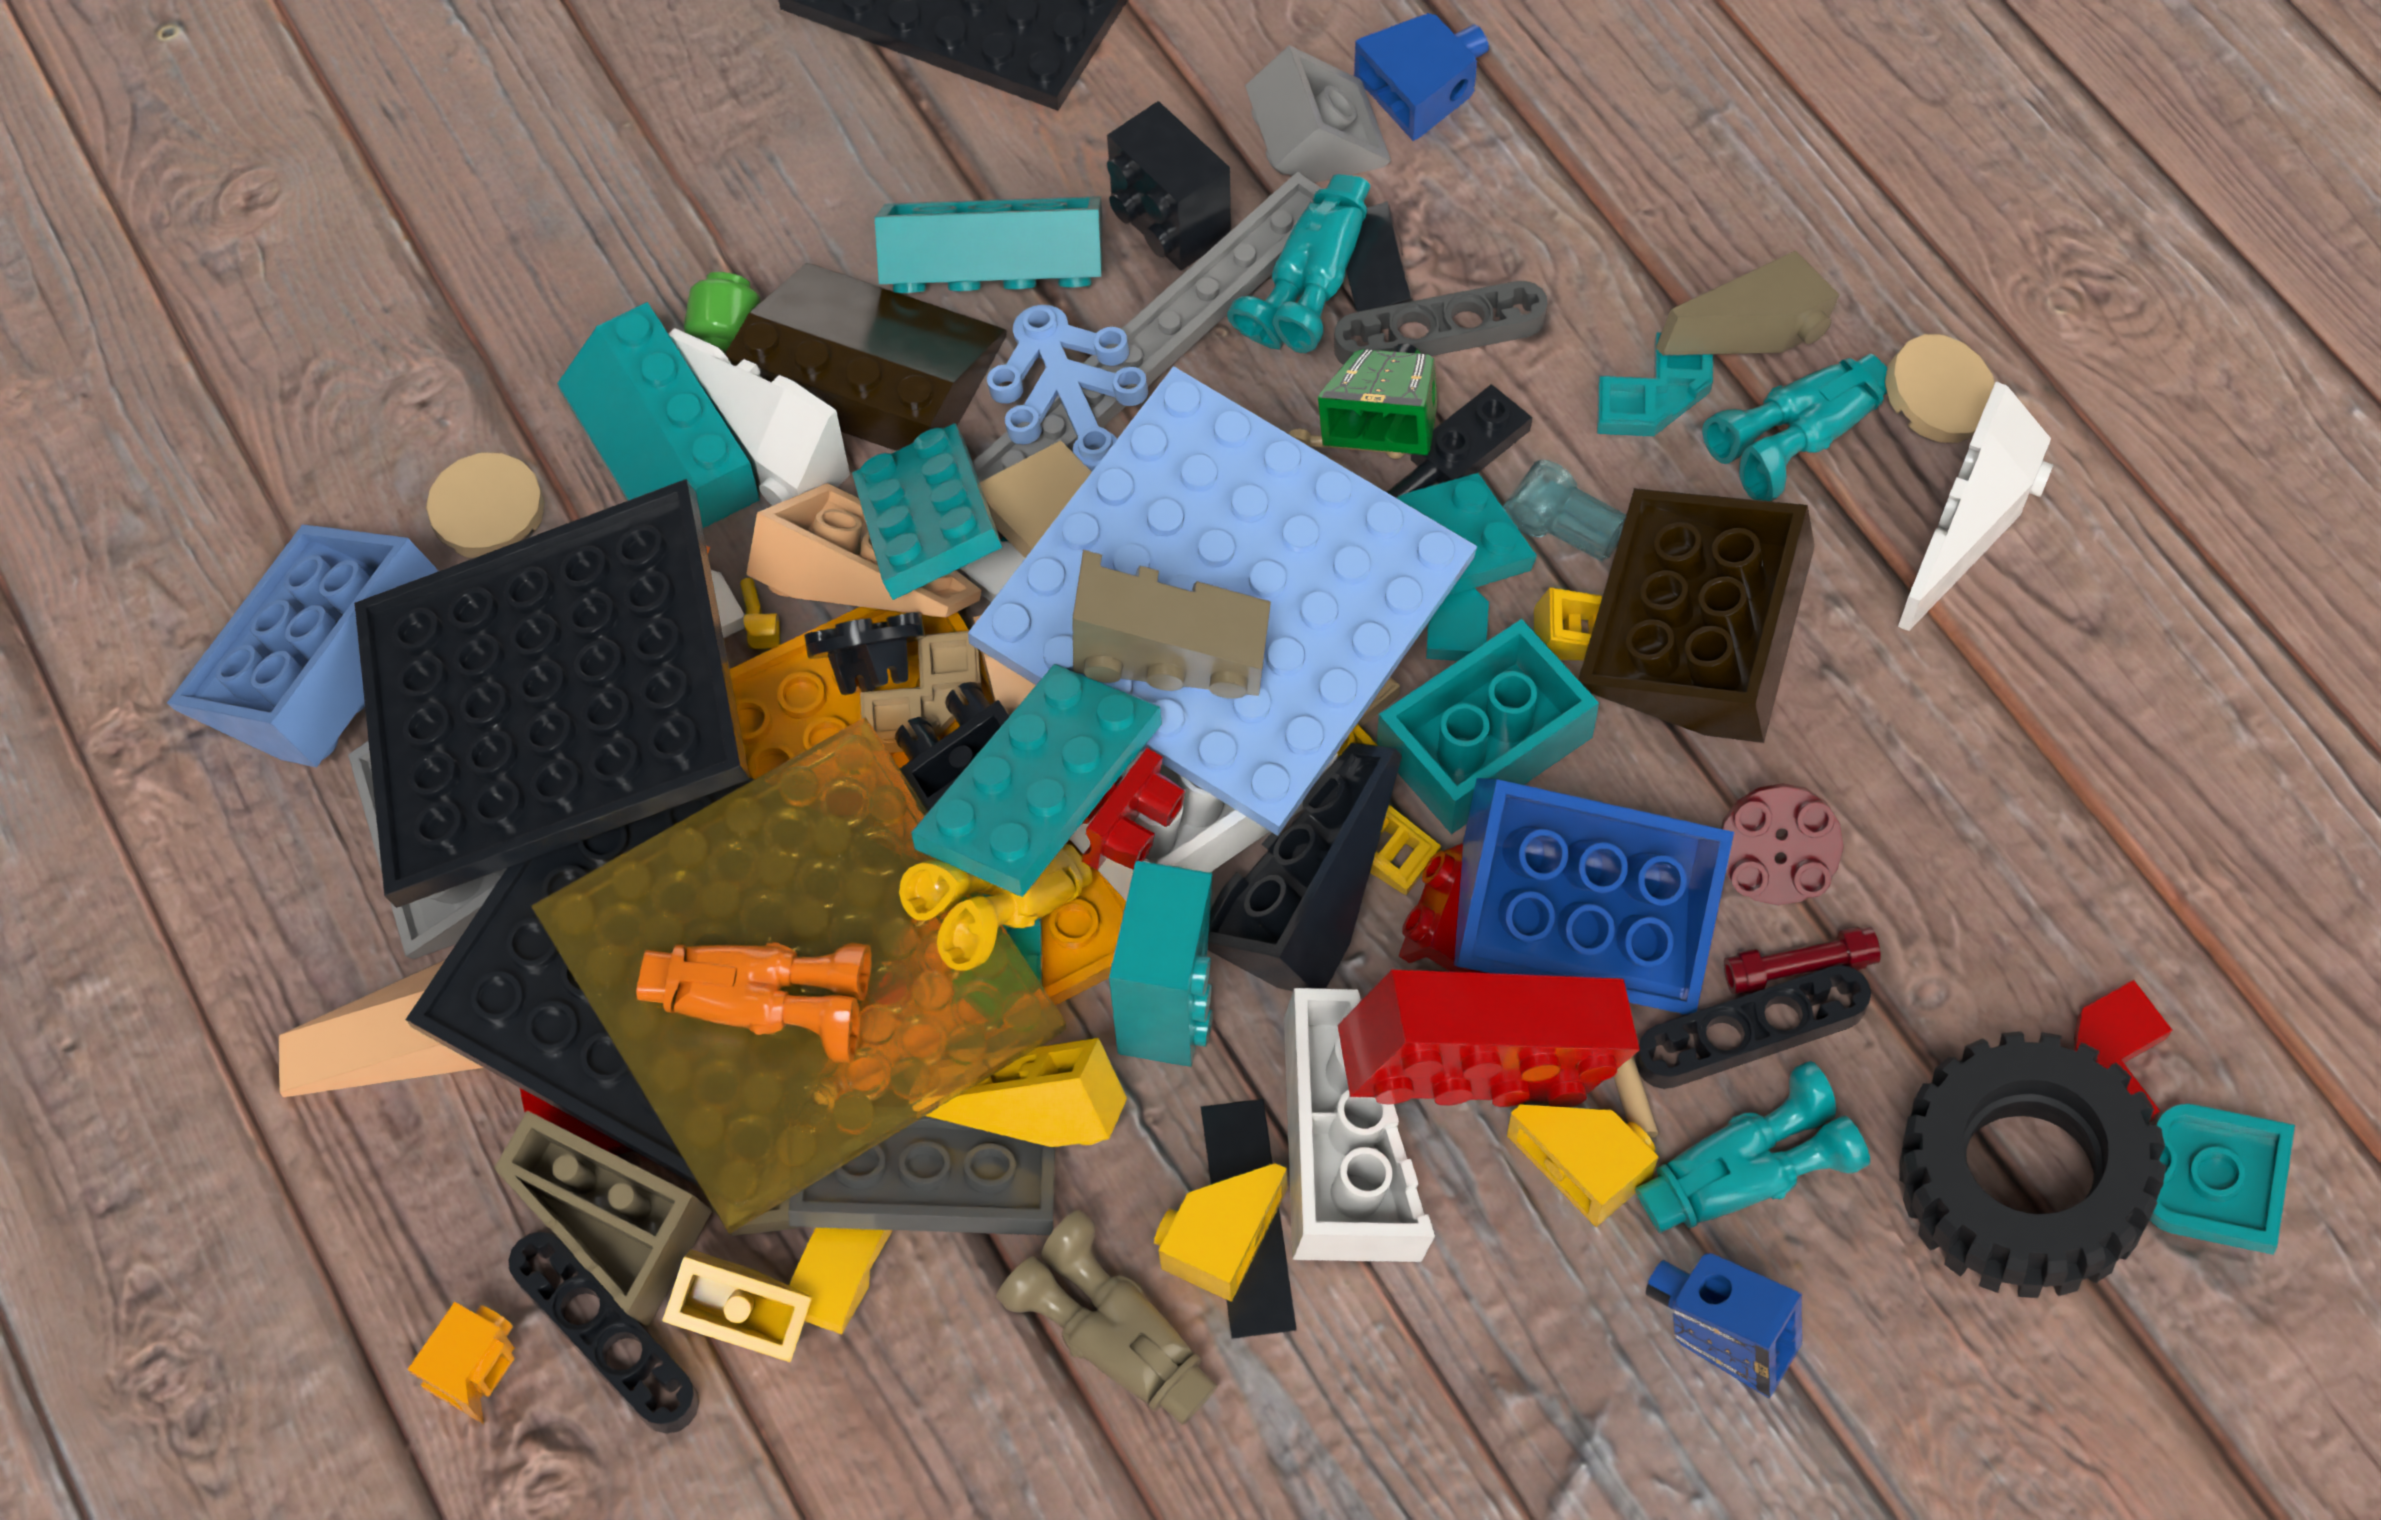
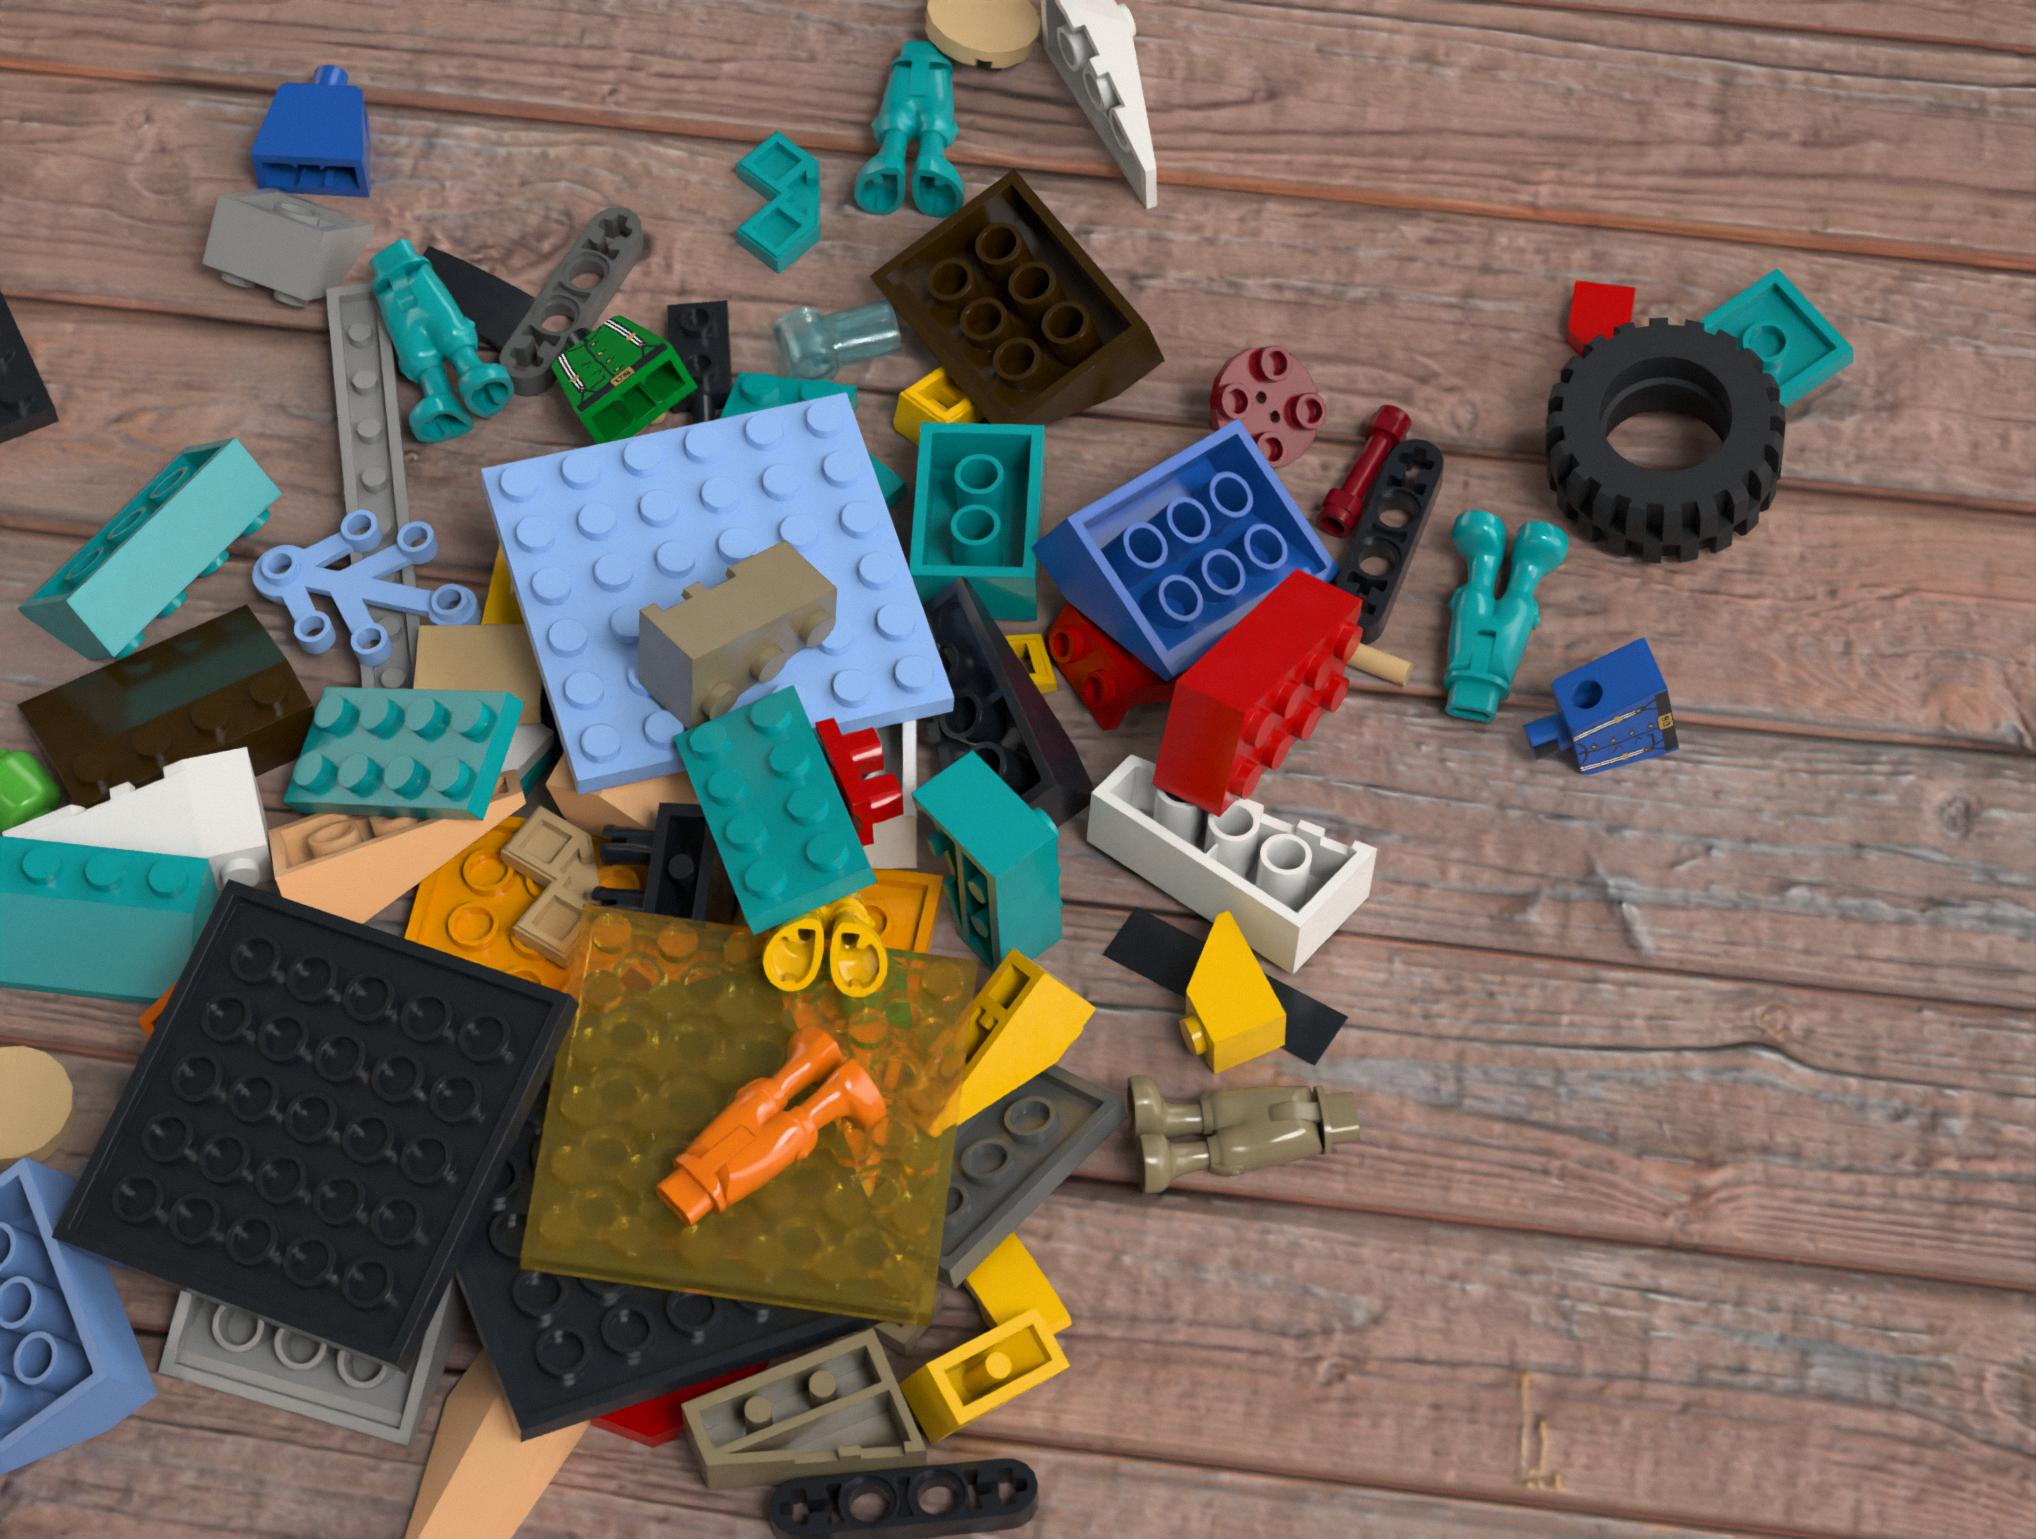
camera: 50 degrees left, 5 degrees down
(867, 650) = (498, 865): black plate -> none
(1168, 185) = (252, 379): black brick -> none
(1585, 1154) = (1390, 720): yellow slope -> none
(1754, 313) = (796, 82): dark tan slope -> none

